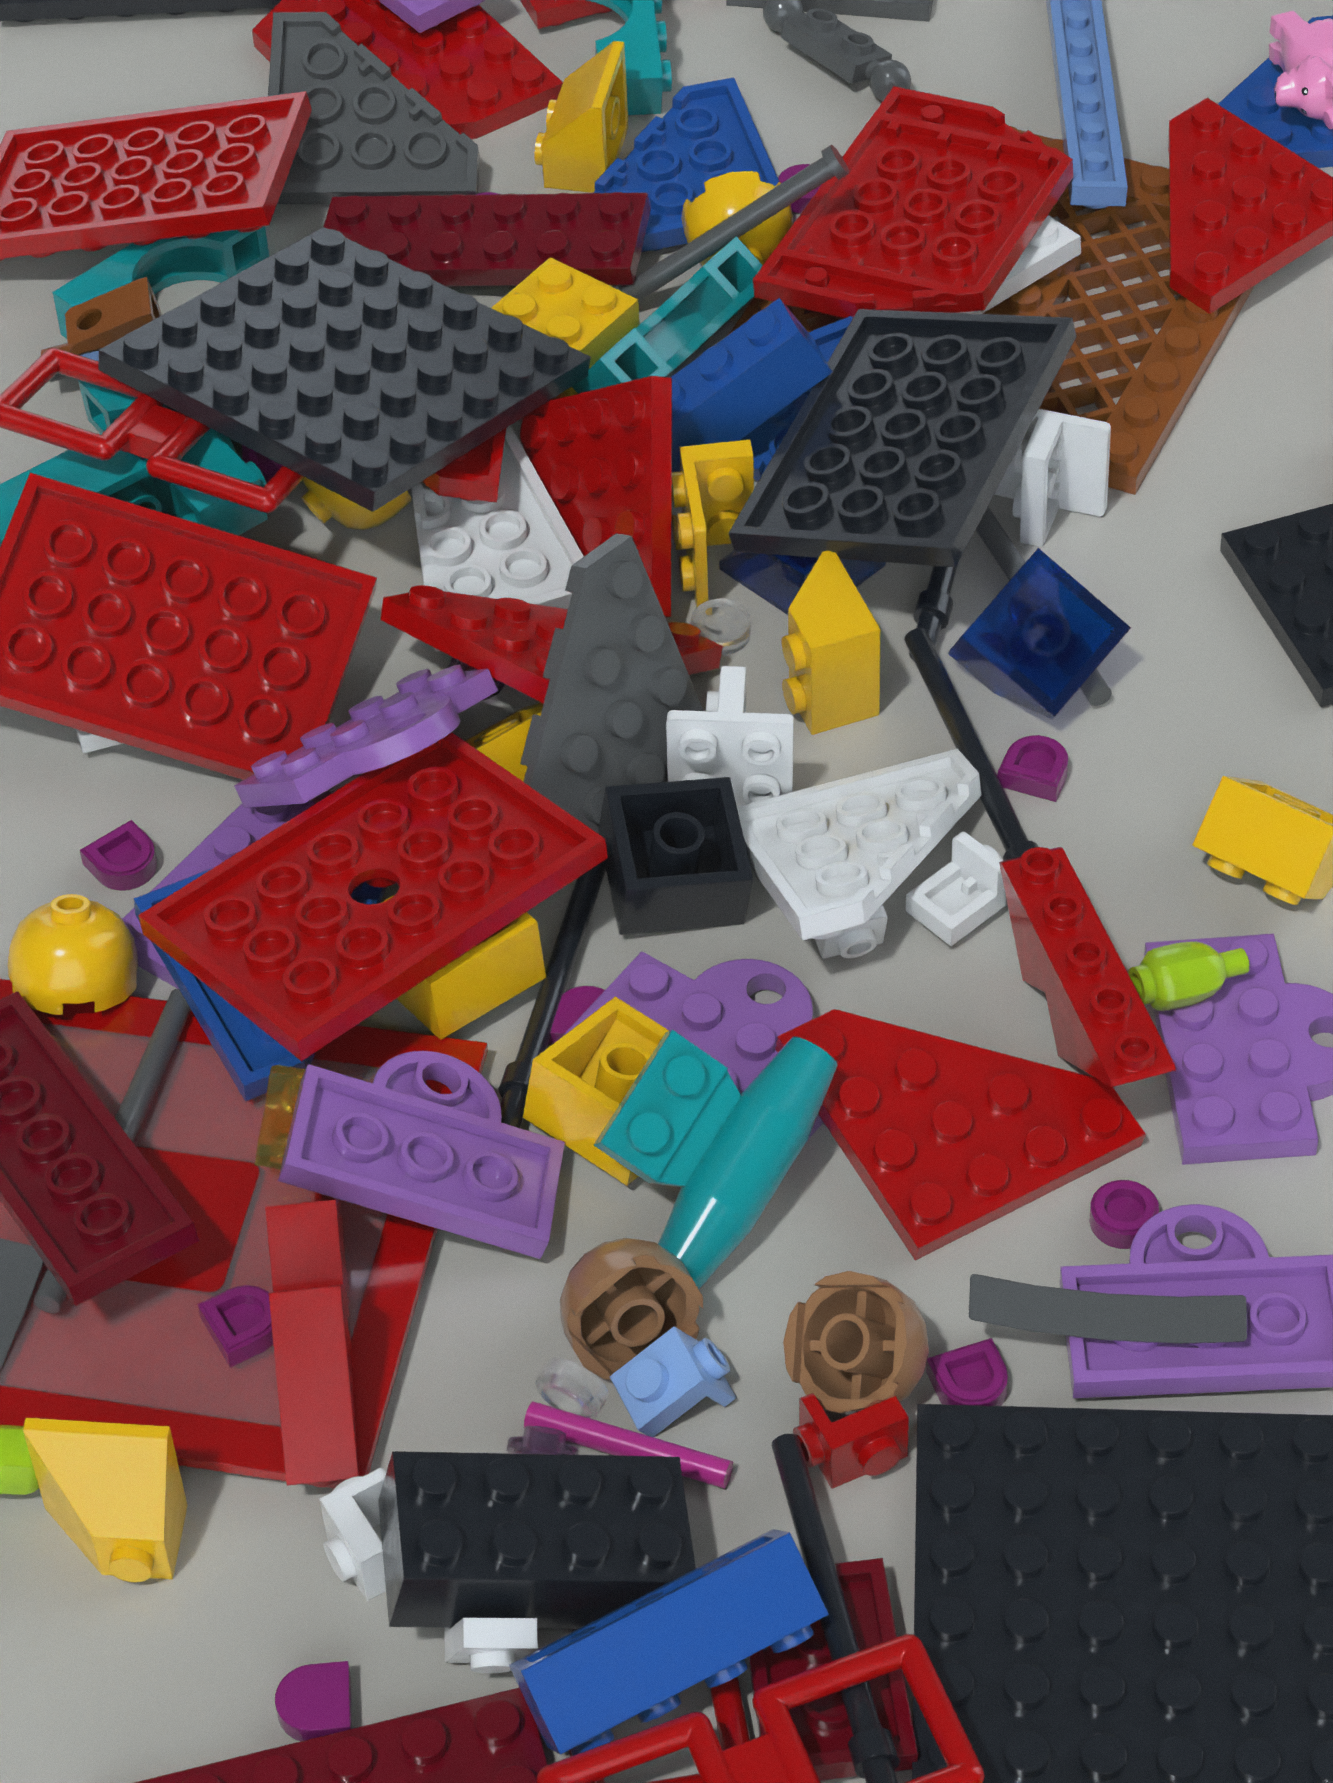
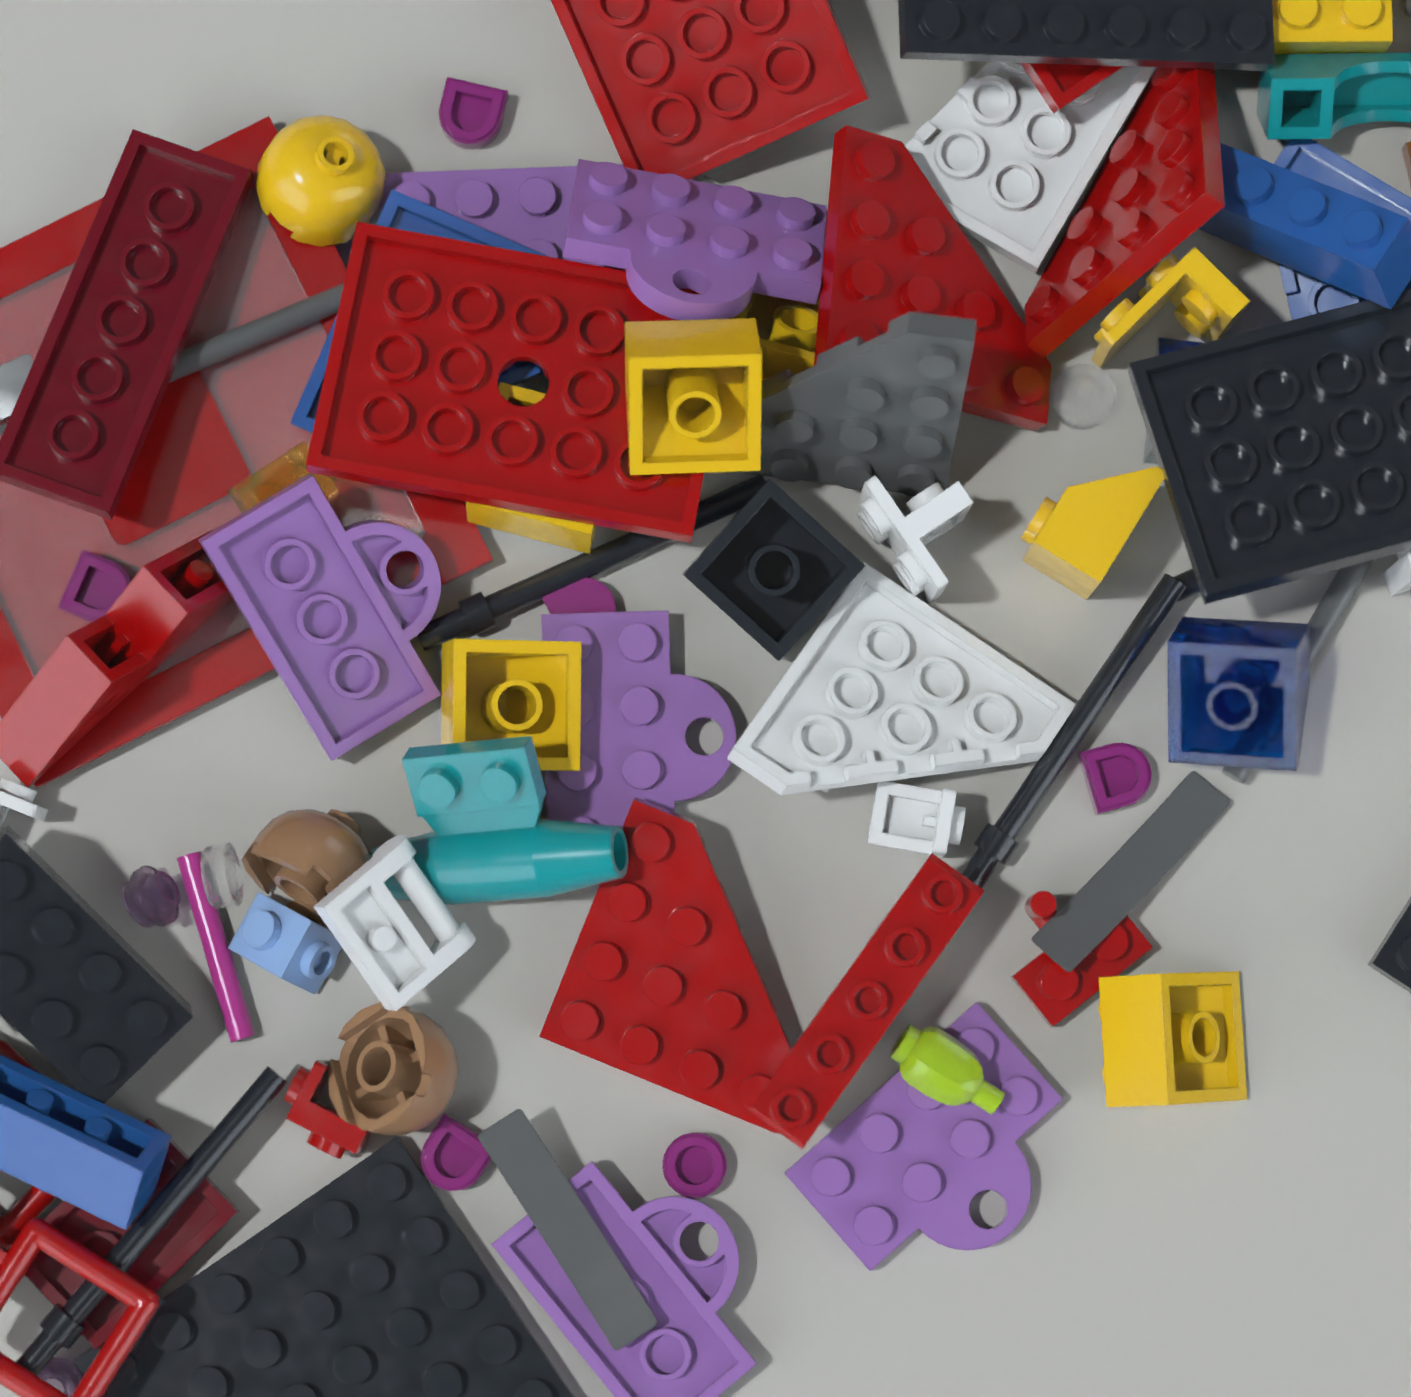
camera: 50 degrees right, 35 degrees up
(498, 766) = (693, 396): none -> yellow slope
(734, 1246) = (379, 933): none -> white plate
(1121, 786) = (1131, 872): none -> dark grey sticker
(1162, 865) = (1060, 992): none -> red plate

